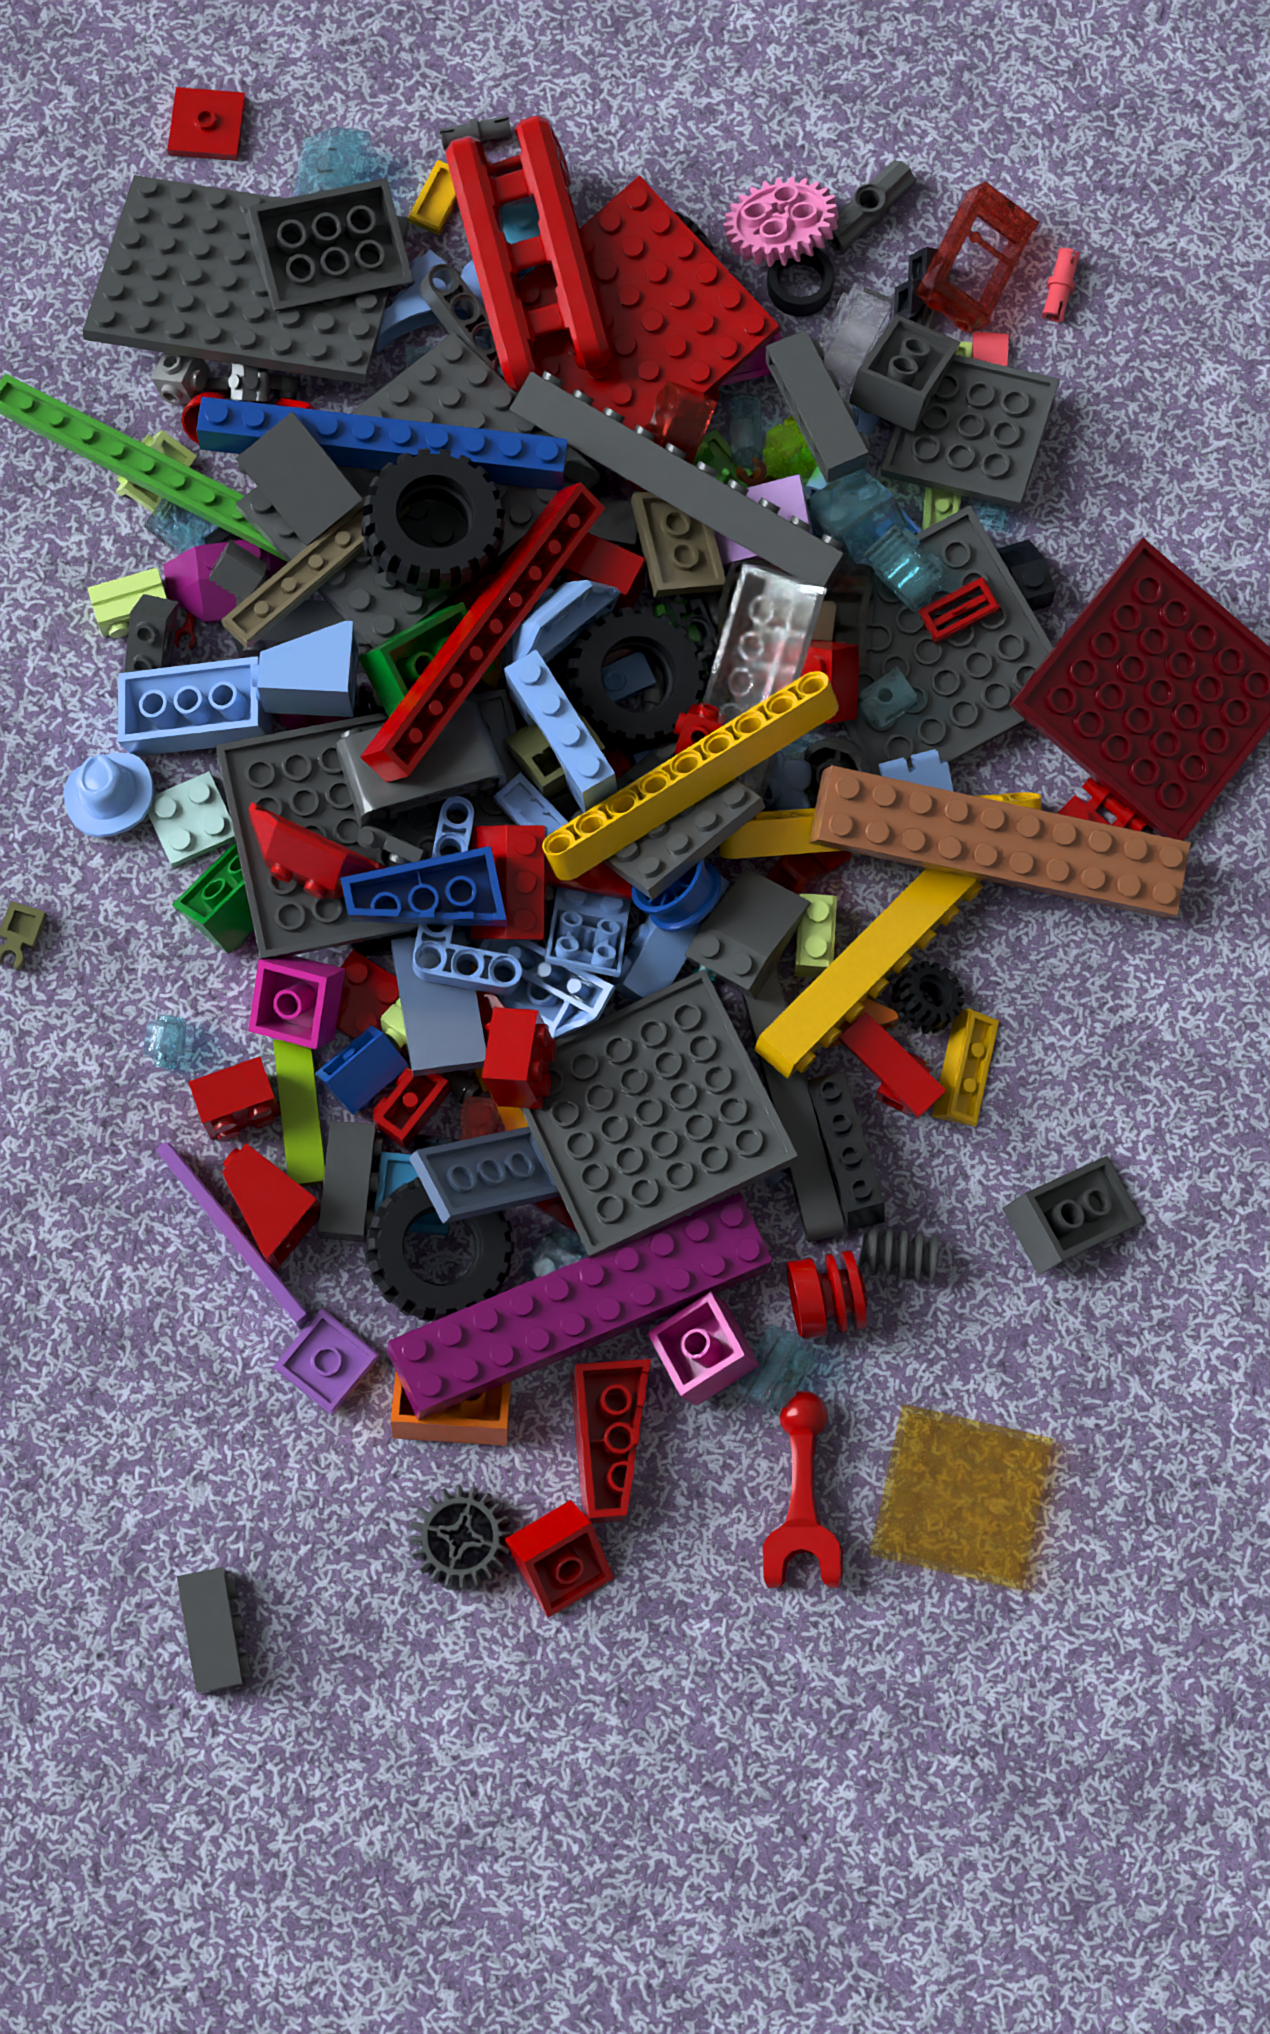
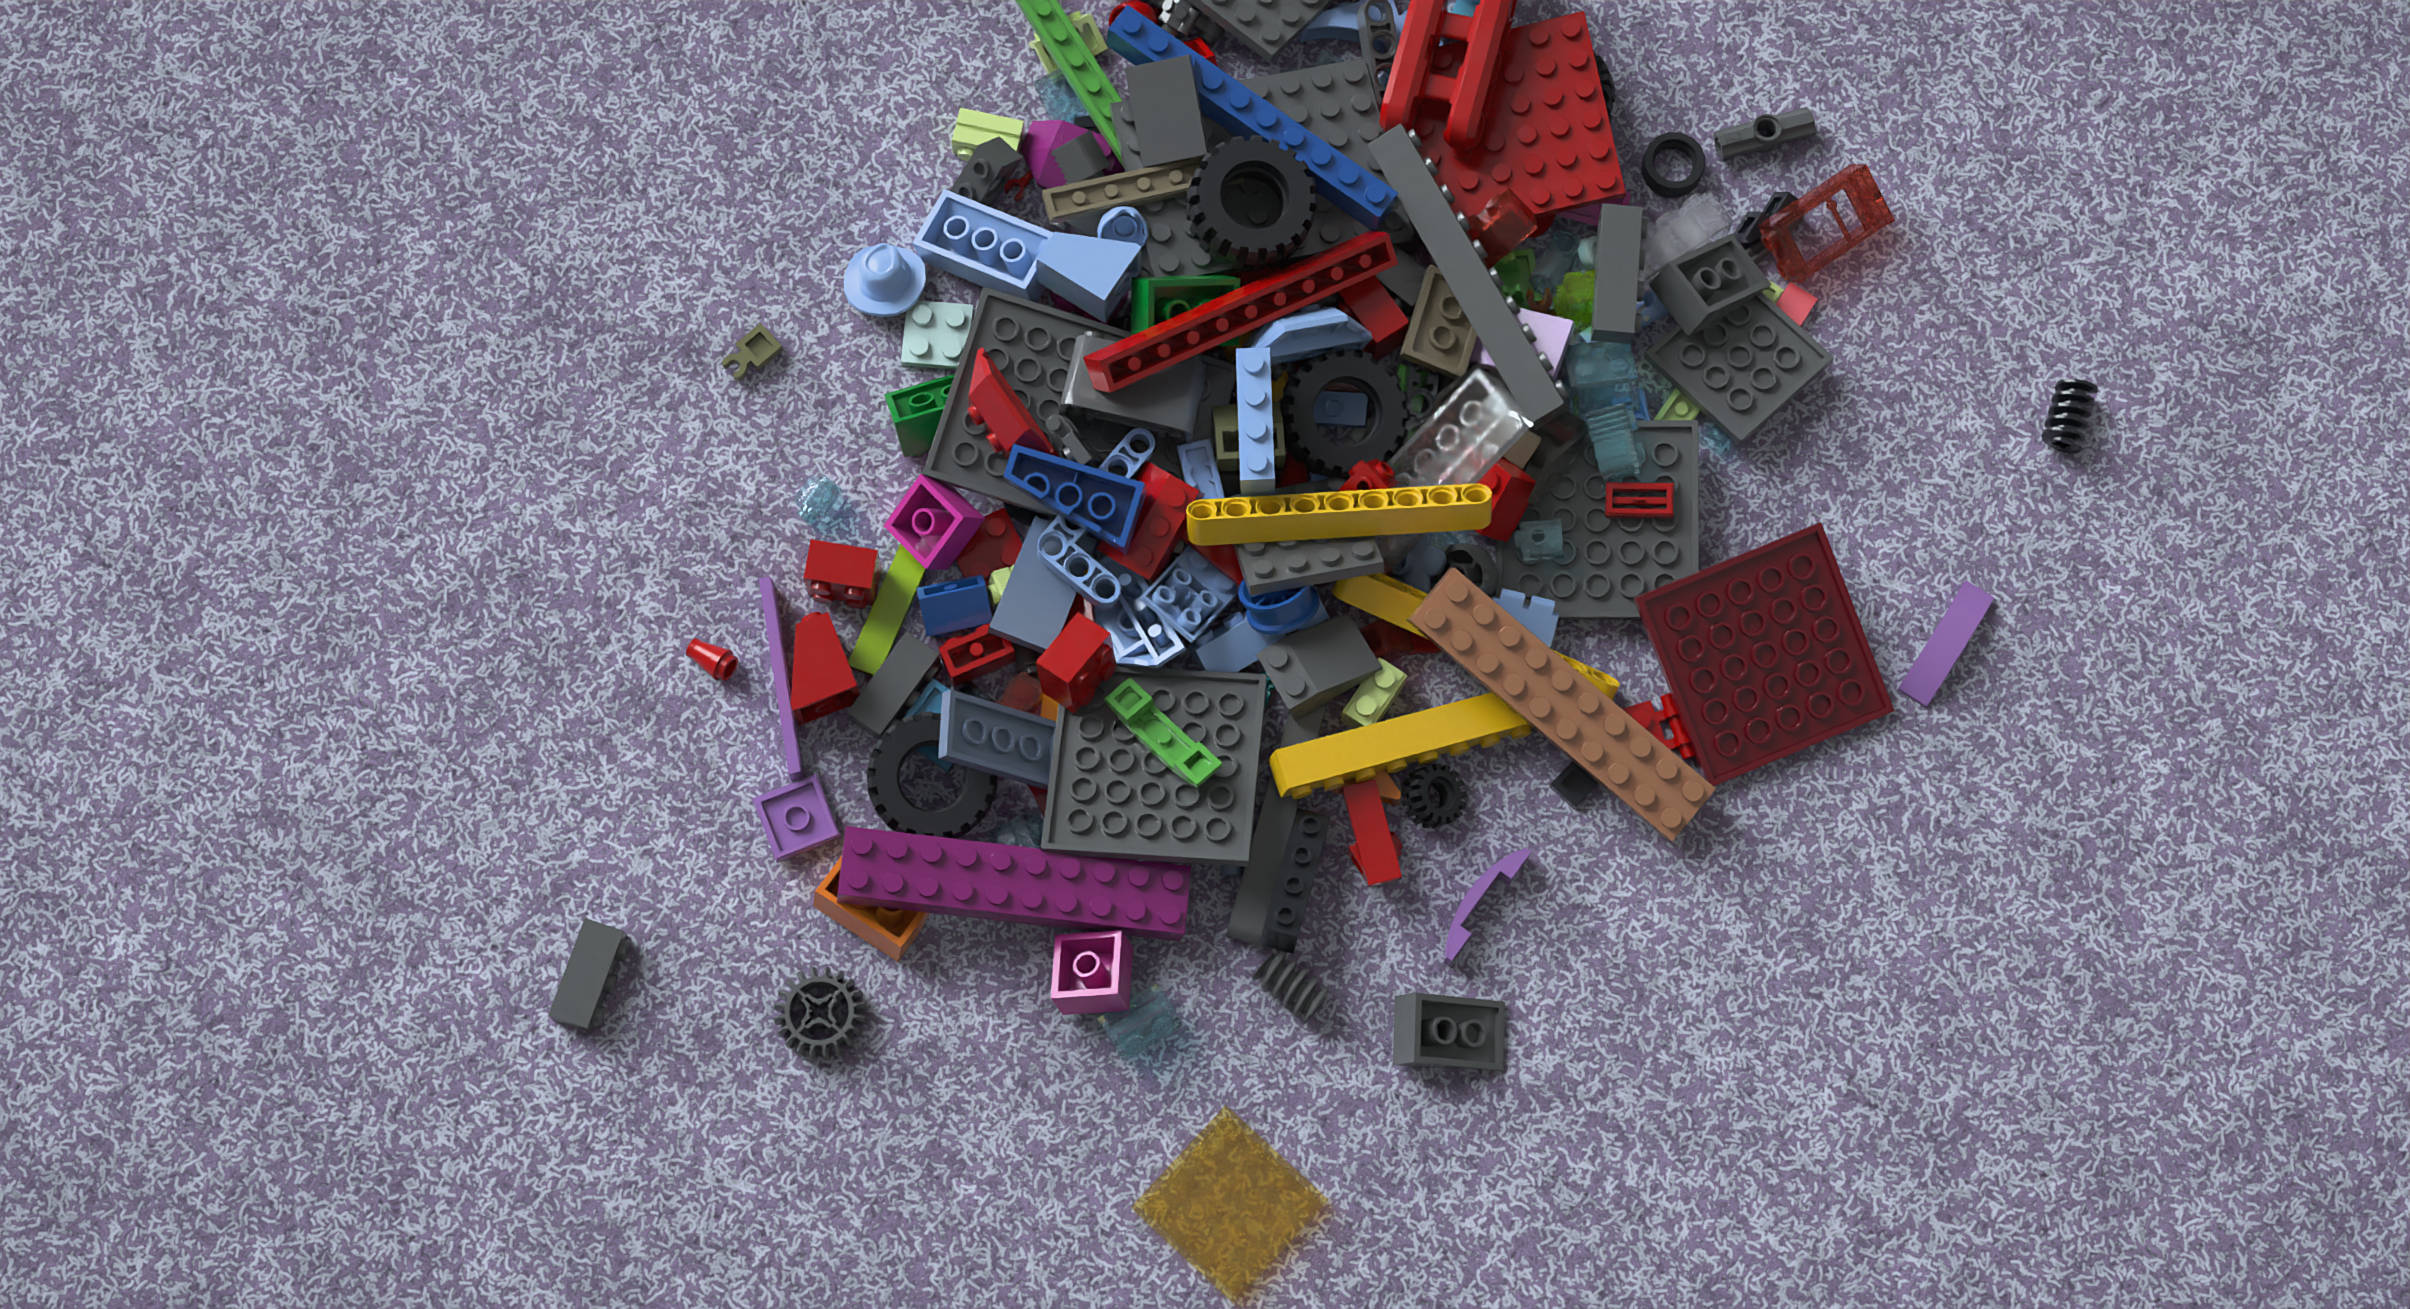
camera: 25 degrees right, 0 degrees up
(154, 1253) = (715, 660): none -> red cone
(319, 611) = (1123, 225): none -> light blue hair
(560, 1558) = (886, 1072): red slope -> none
(607, 1431) = (984, 988): red wedge -> none
(641, 1083) = (1160, 735): none -> bright green slope
(773, 403) = (1587, 252): none -> light aqua tile
(781, 221) = (1683, 108): bright pink gear -> none
(802, 1529) = (1090, 1155): red piece -> none
(826, 1295) = (1213, 985): red wheel -> none
(966, 1067) = (1434, 869): yellow slope -> none
(1025, 1117) = (1504, 870): none -> medium lavender slope
(1030, 573) = (1716, 501): black slope -> none
(1050, 914) = (1573, 784): none -> black tile
(1061, 285) = (1885, 281): coral pin -> none

